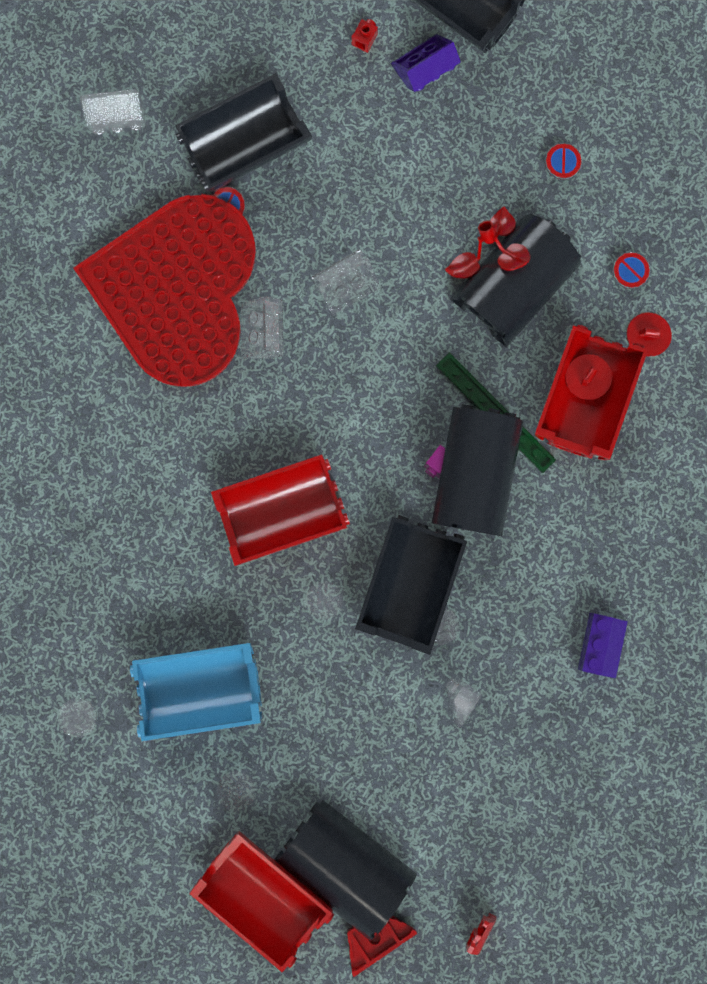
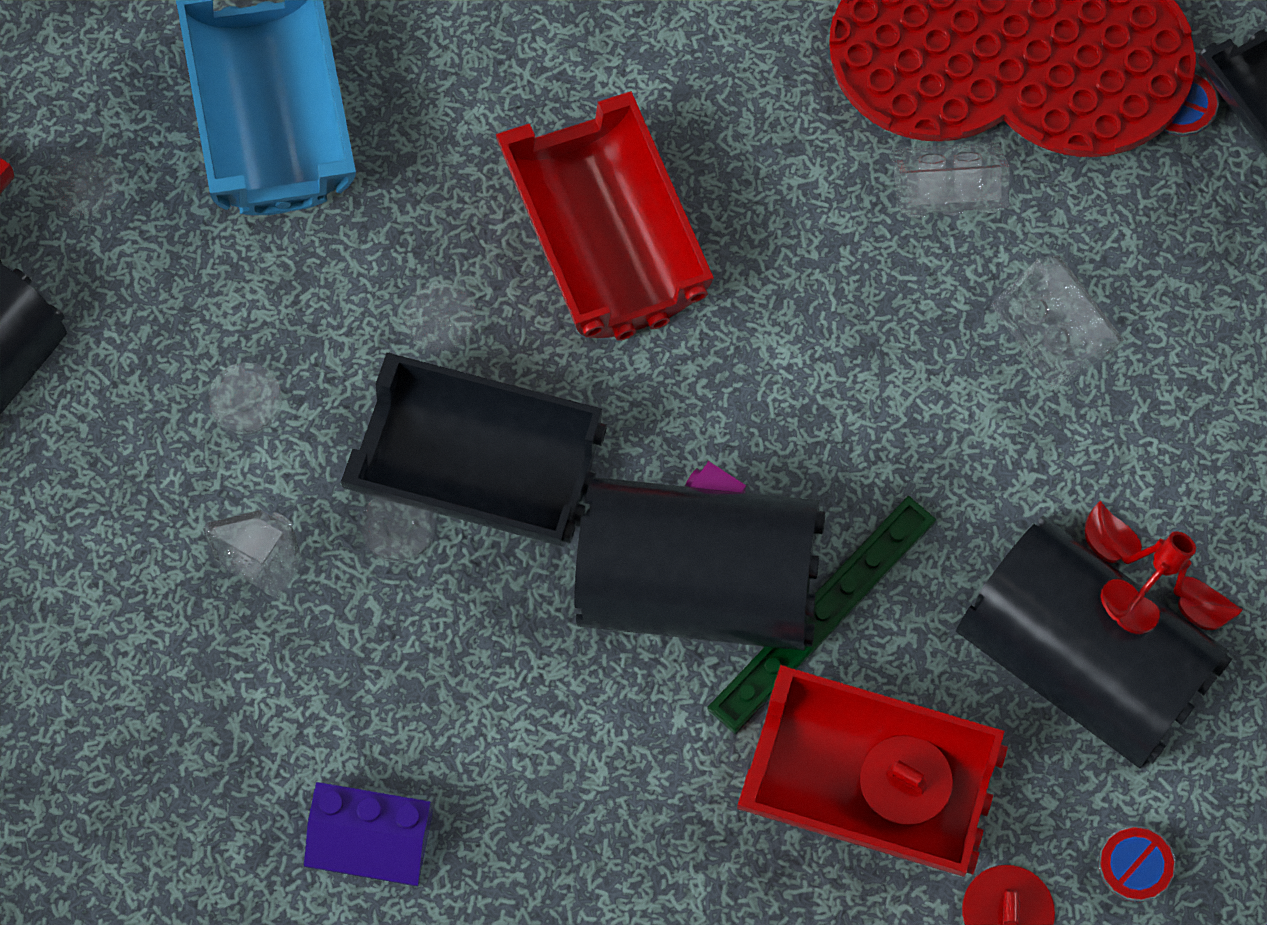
camera: 85 degrees right, 15 degrees down
(366, 704) = (245, 398): none -> clear tile

